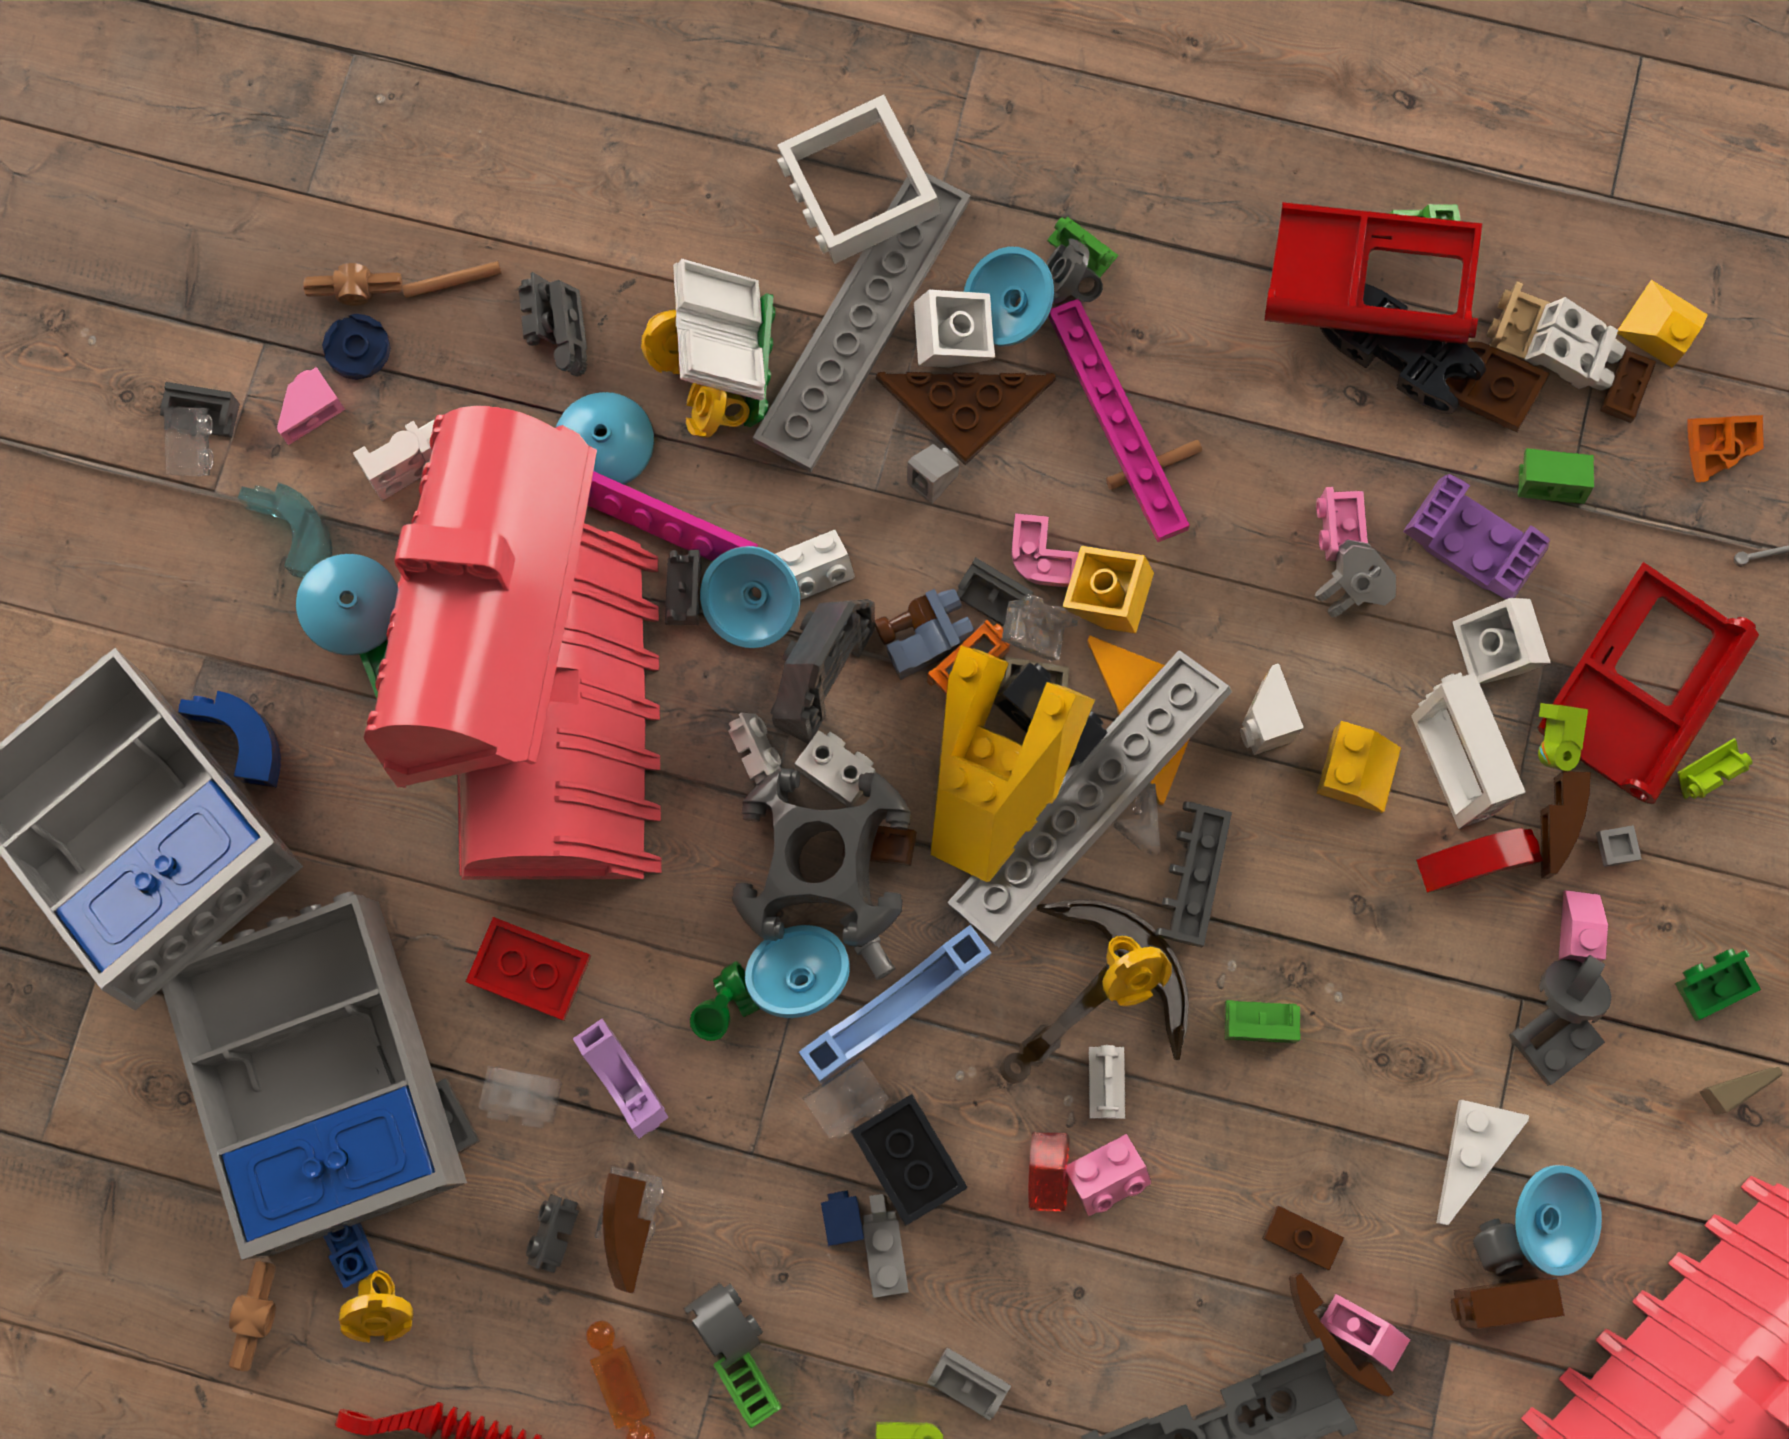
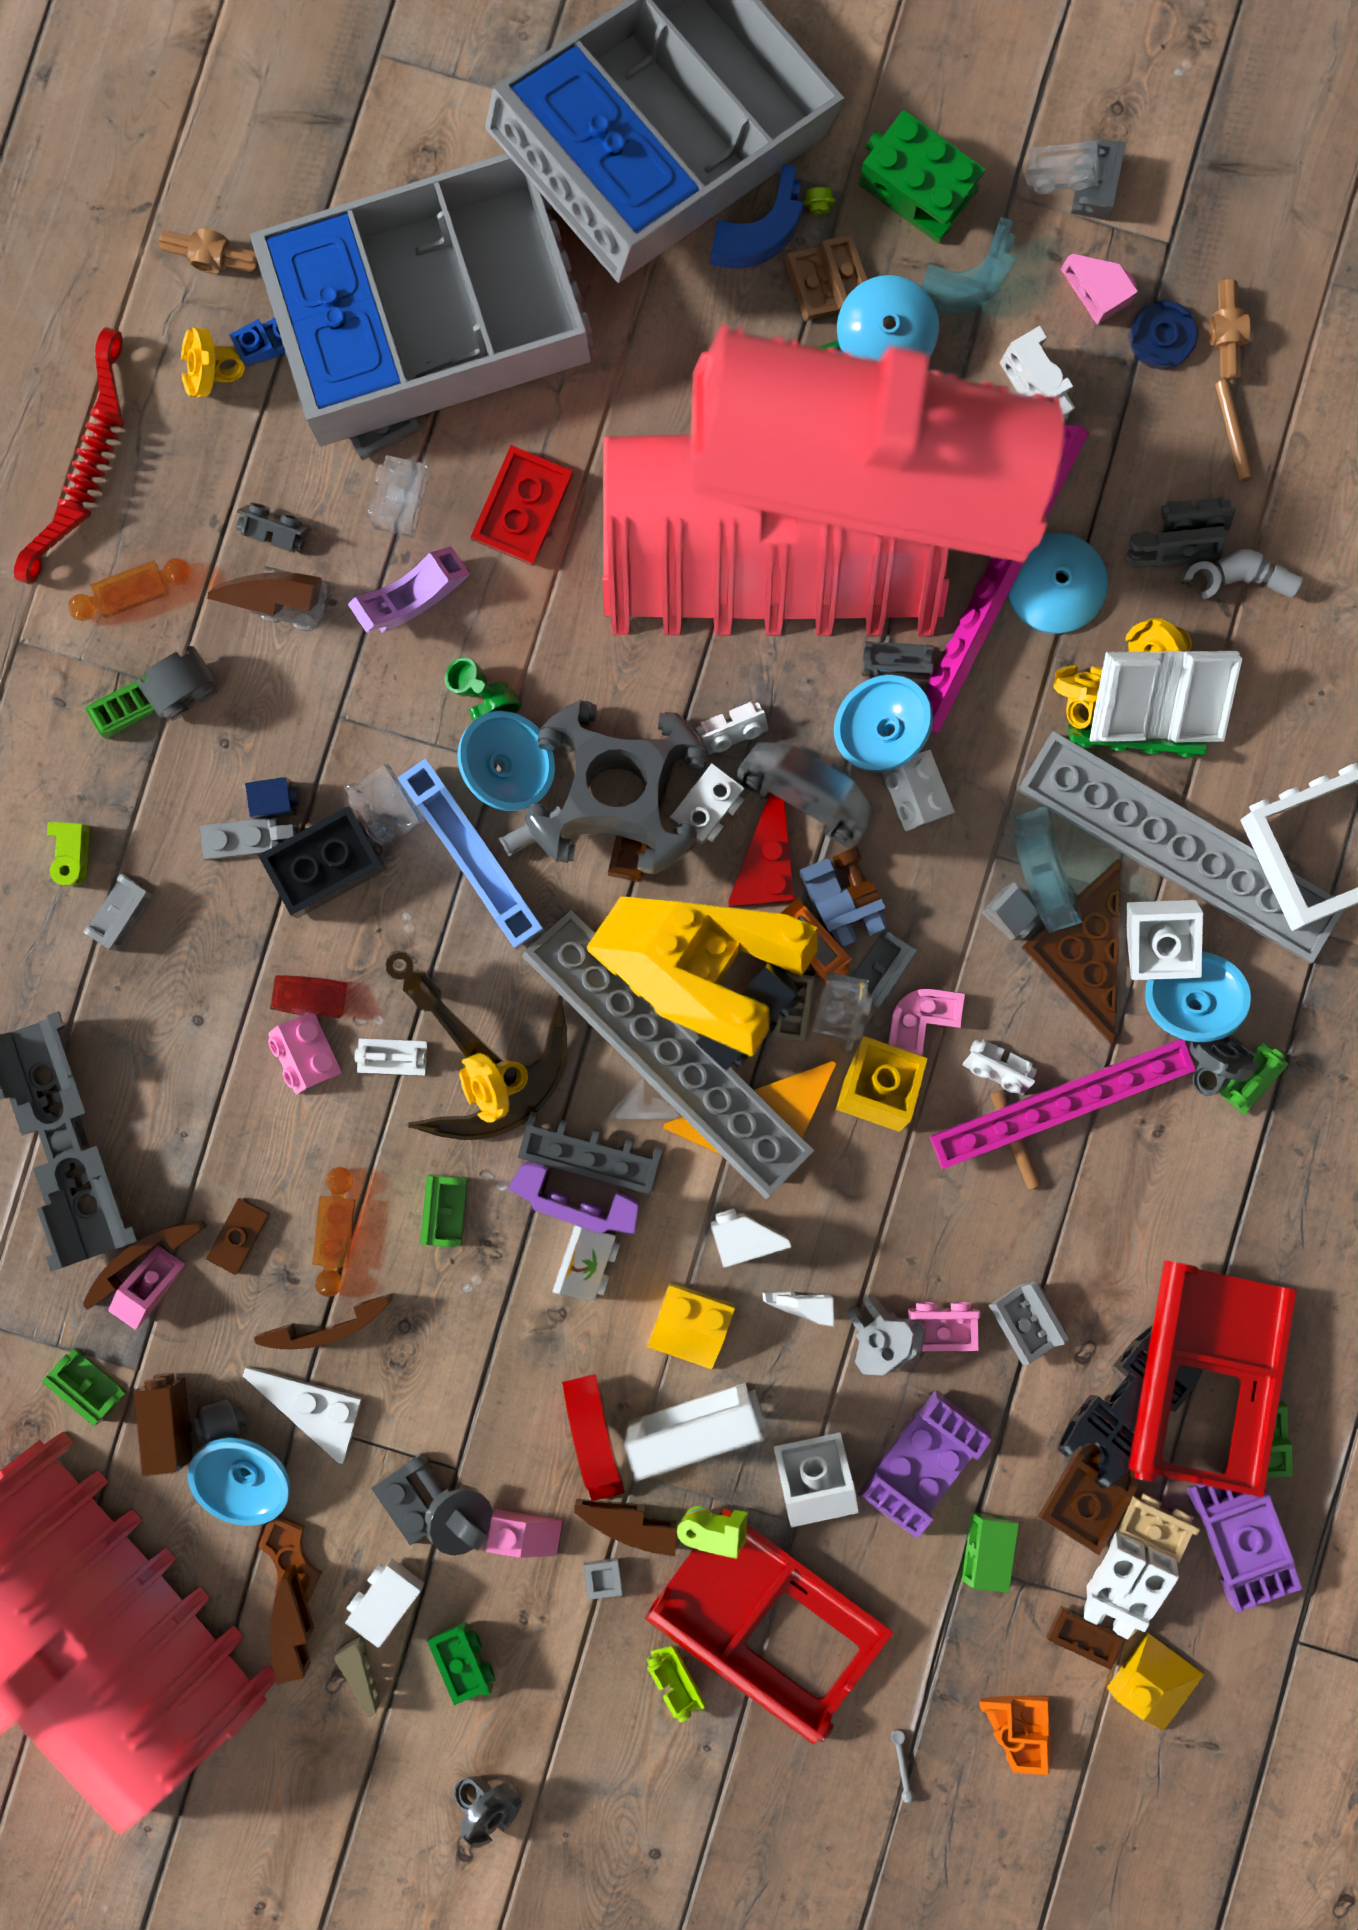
camera: 90 degrees right, 10 degrees up
(193, 578) = (919, 175): none -> green torso
(213, 678) = (819, 200): none -> lime plate
(292, 670) = (824, 275): none -> medium nougat slope
(587, 269) = (1243, 566): none -> light grey piece
(889, 439) = (1044, 870): none -> clear light blue arch
(895, 709) = (766, 867): none -> red wing
(1091, 466) = (986, 1062): none -> white hinge
(1255, 838) = (529, 1185): none -> medium lavender plate
(1291, 1135) = (333, 1231): none -> clear orange plate
(1304, 873) = (585, 1263): none -> white slope
(1330, 445) = (1028, 1321): none -> light grey bracket
(1334, 643) = (811, 1307): none -> white slope
(1404, 1183) = (286, 1337): none -> reddish brown slope
(1473, 1395) = (84, 1387): none -> bright green hinge
(1526, 241) = (1246, 1545): none -> medium lavender plate
(1644, 1161) = (284, 1545): none -> dark orange tile
(1665, 1064) = (384, 1602): none -> white brick
(1704, 1160) = (290, 1629): none -> reddish brown slope

